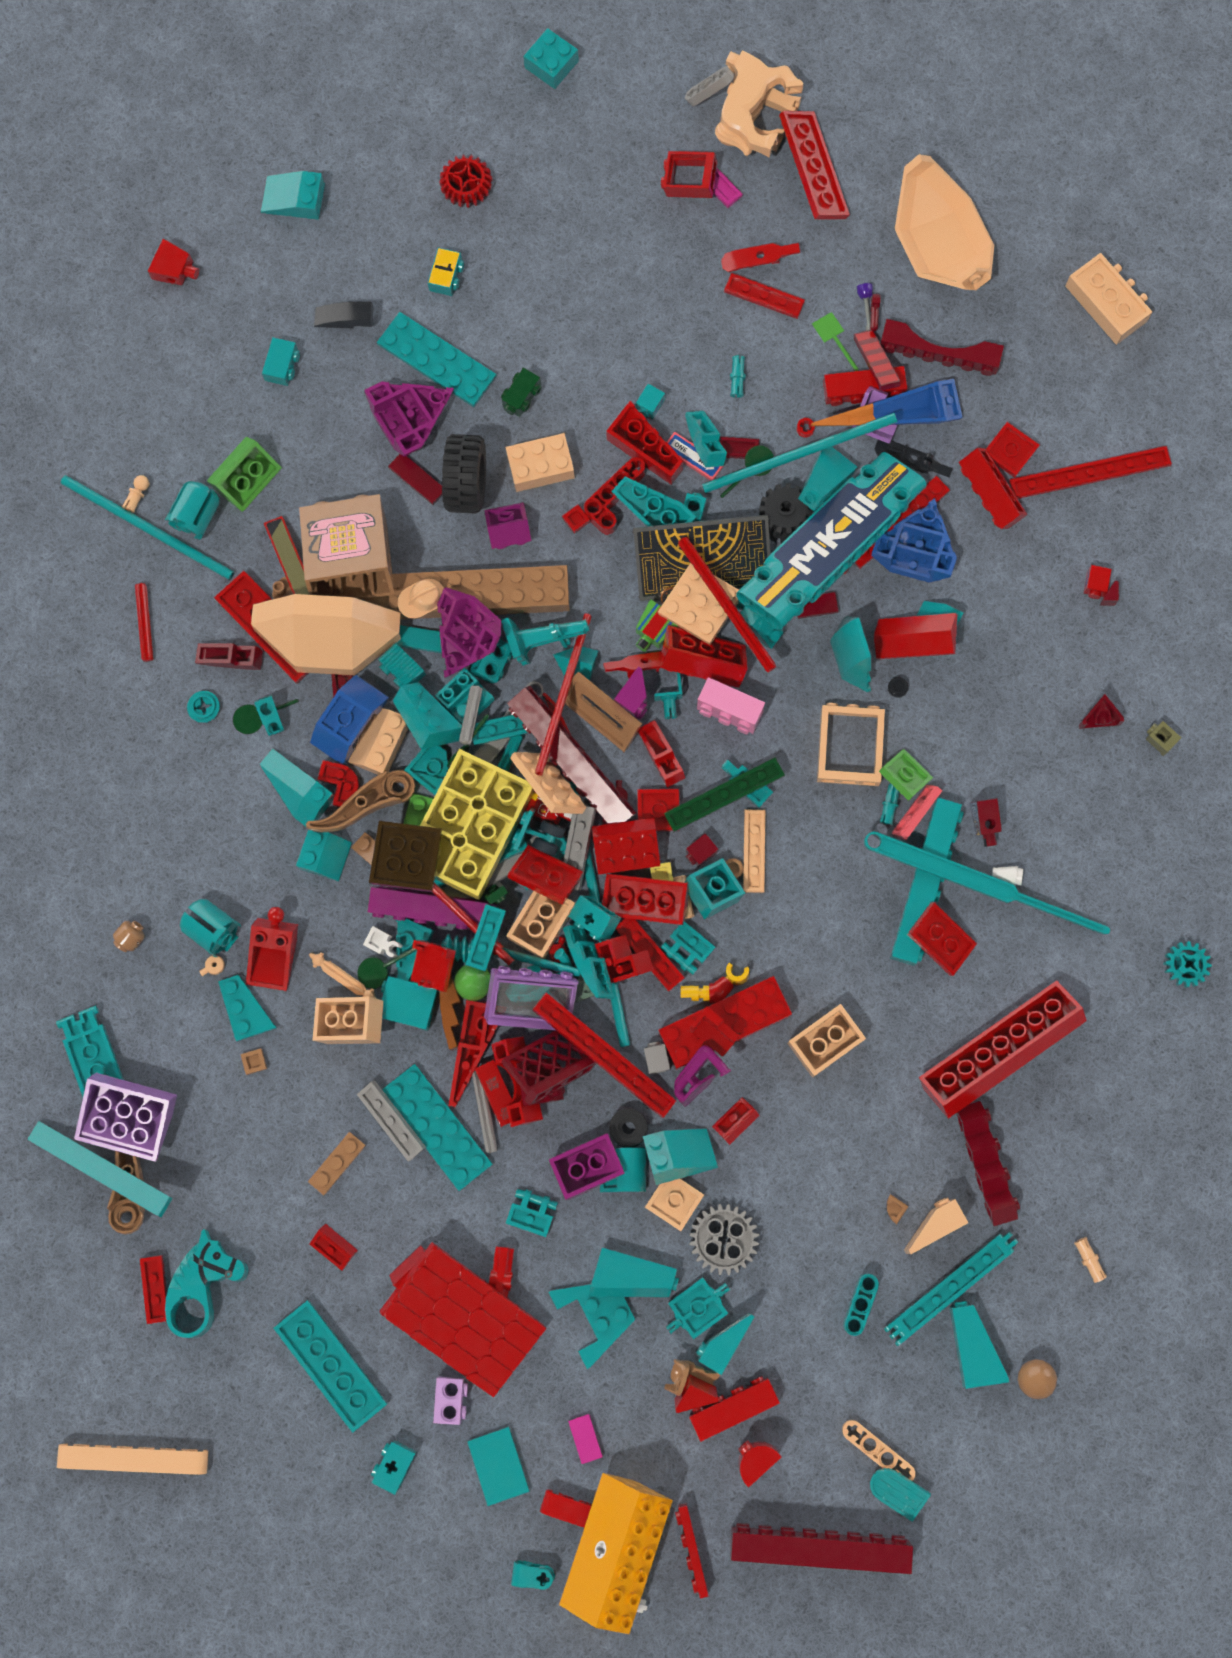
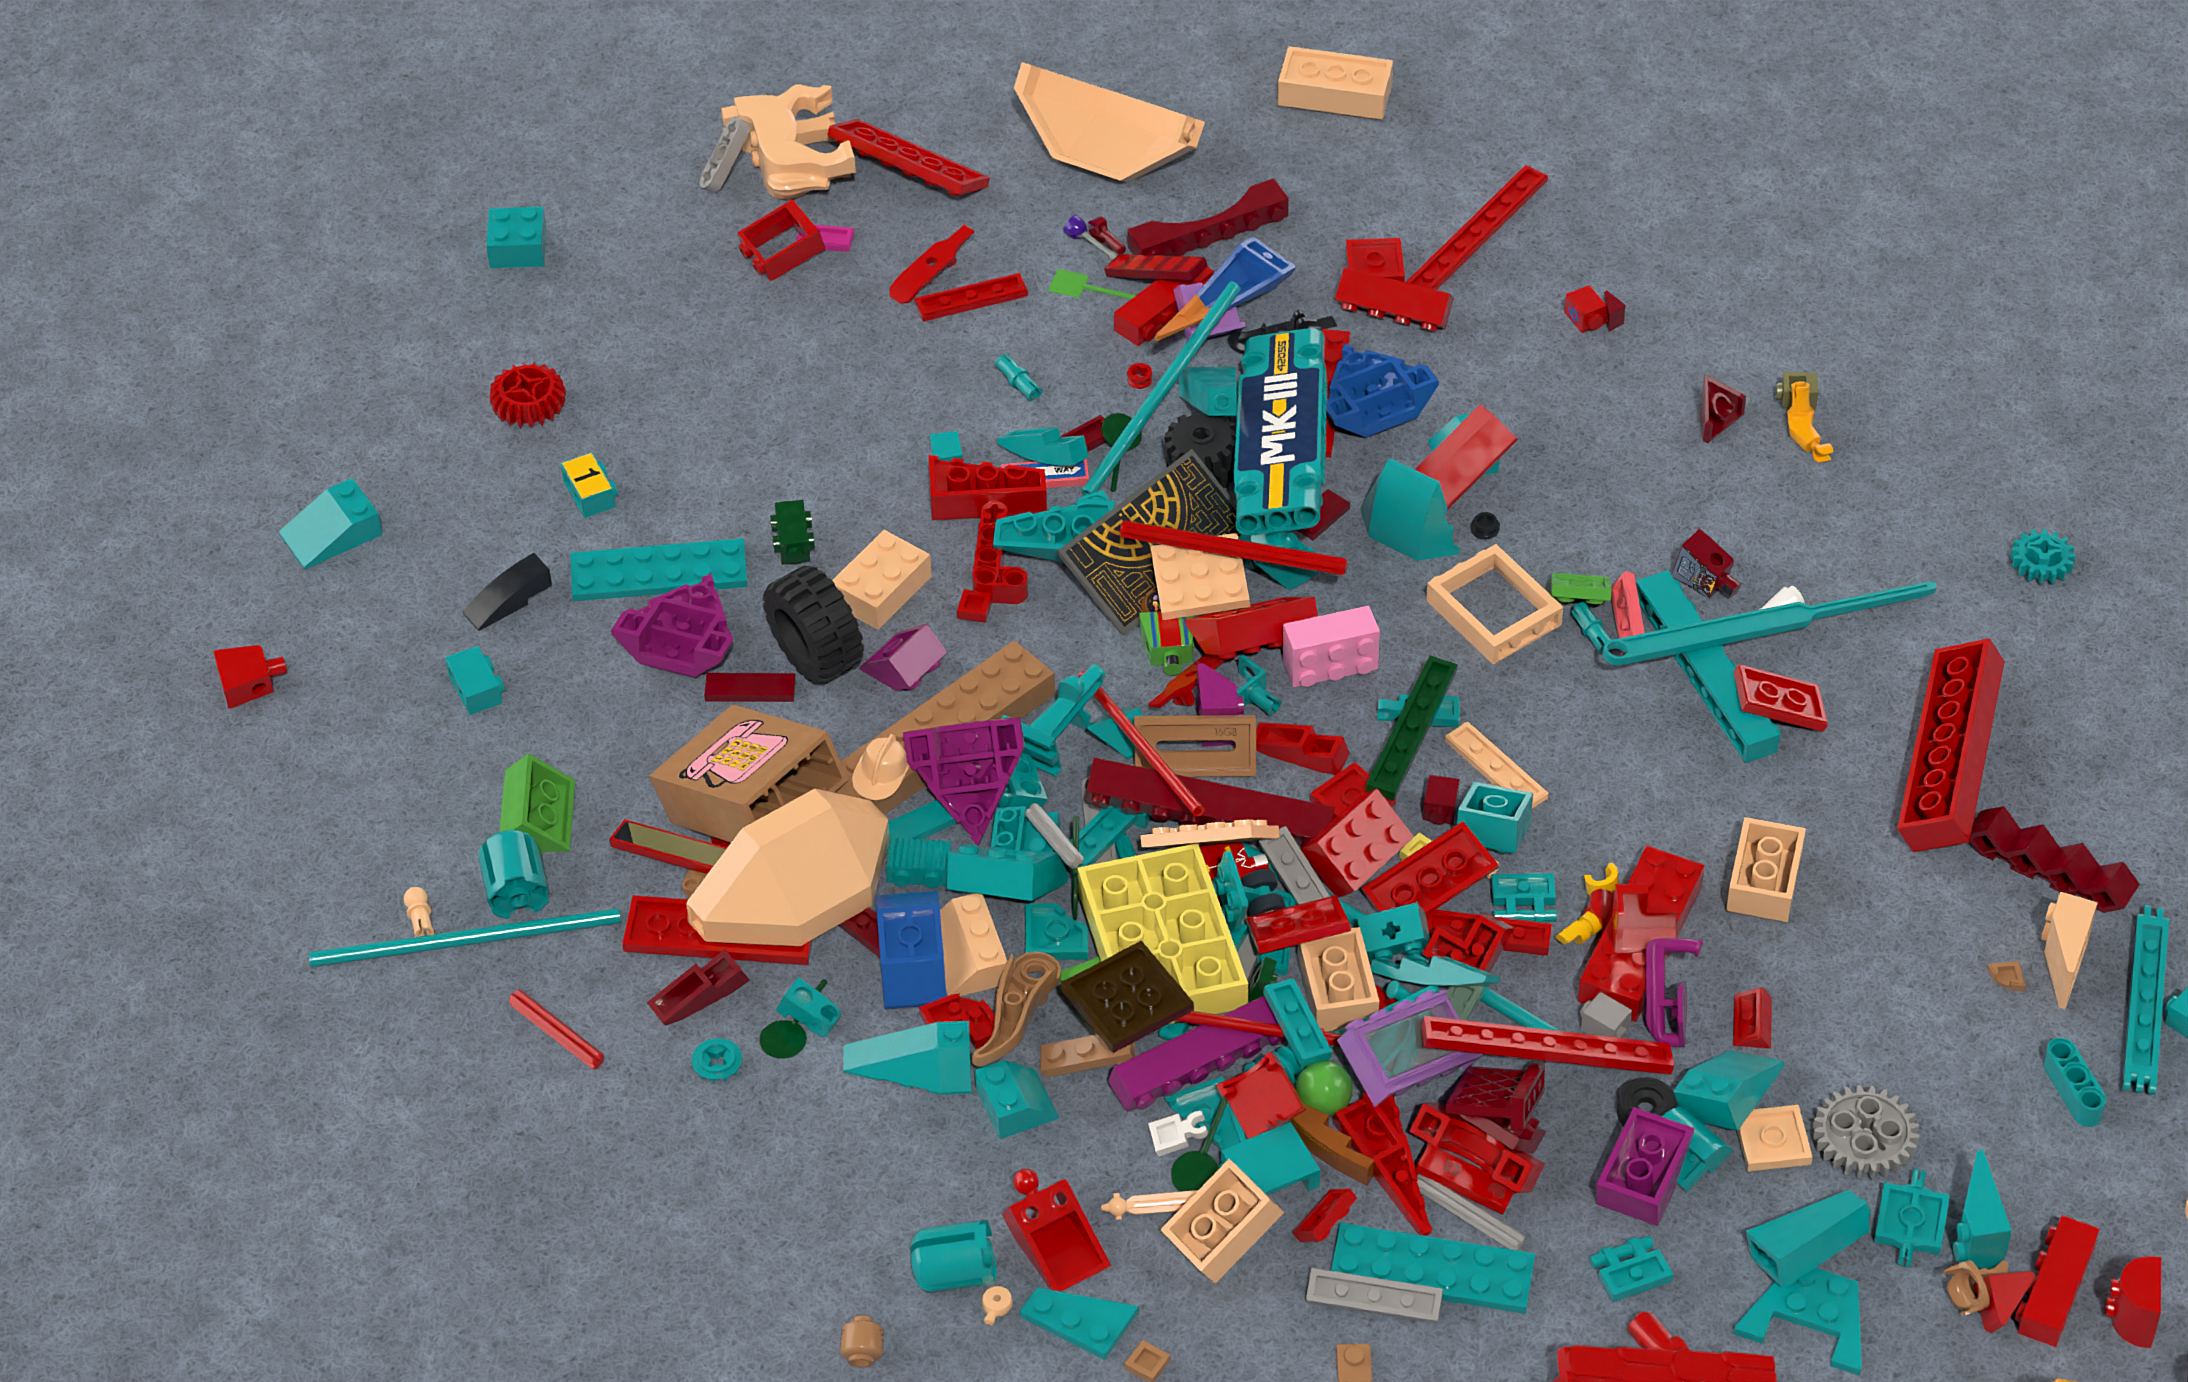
camera: 45 degrees left, 30 degrees down
(410, 1053) = (1324, 1215): none -> red plate
(1143, 759) = (1801, 424): none -> light orange arm

